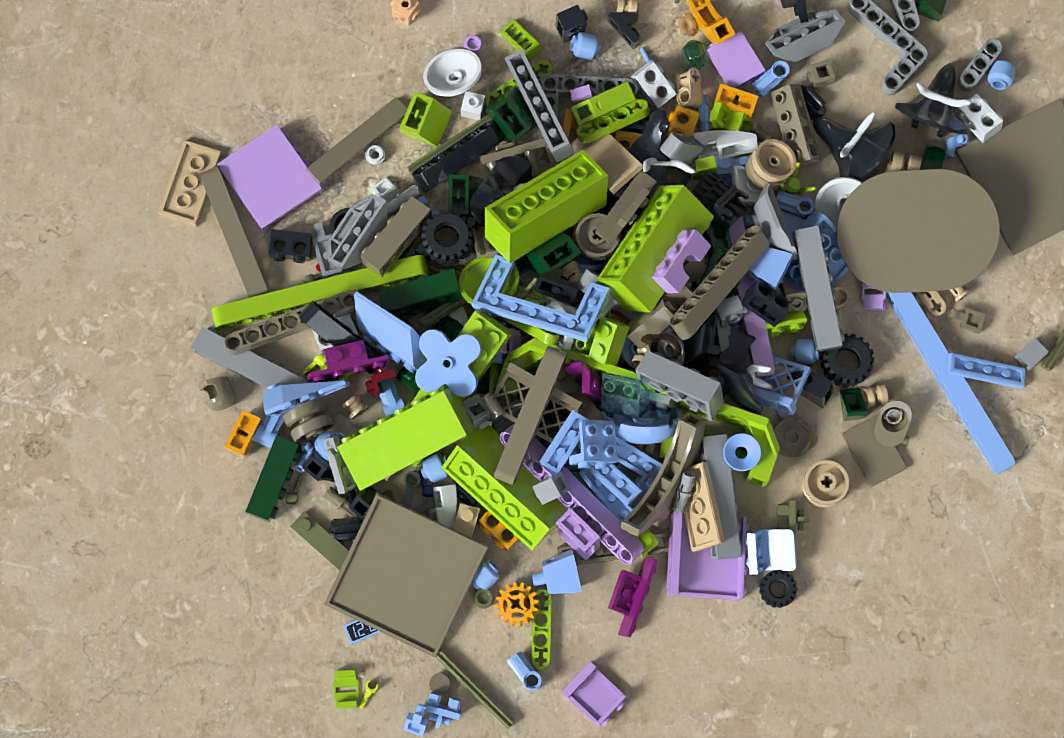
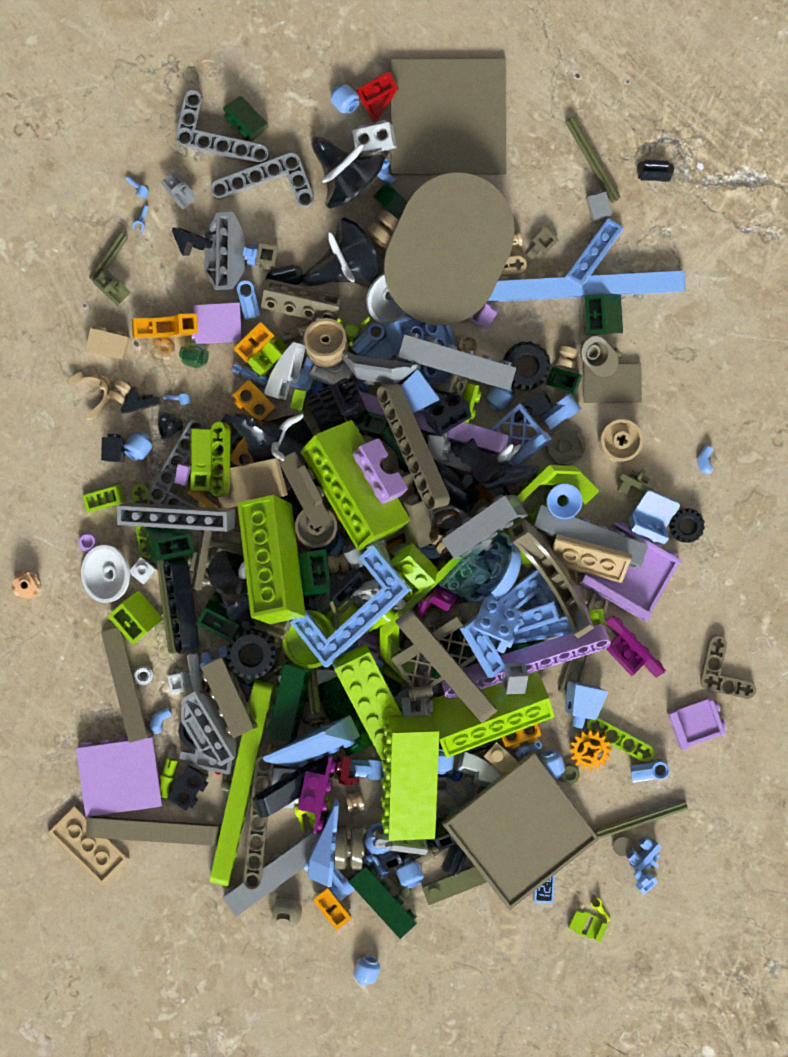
camera: 65 degrees left, 10 degrees up
(199, 498) = (367, 970): none -> light blue head
(291, 222) = (167, 776): none -> lime pin
(312, 492) = (410, 874): none -> light blue head
(340, 187) = (157, 718): none -> light blue arm
(460, 353) = (355, 717): light blue plant -> none
(493, 549) = (524, 750): none -> light blue arm
(578, 534) = (561, 673): lavender panel -> none
(618, 64) = (168, 425): none -> black piece
(650, 88) = (204, 409): white brick -> none
(653, 689) = (716, 672): none -> dark tan beam
(681, 147) = (276, 414): light grey beam -> none
(684, 491) = (571, 565): light grey pin -> none
(689, 88) = (222, 377): tan piece -> none
(814, 58) = (250, 254): none -> light blue plate
(827, 418) = (564, 409): none -> light blue piece
(847, 573) = (703, 460): none -> light blue arm
(934, 407) = (602, 314): none -> dark green slope
(984, 57) = (326, 103): light grey beam -> none
(1021, 102) = (378, 94): none -> red wing

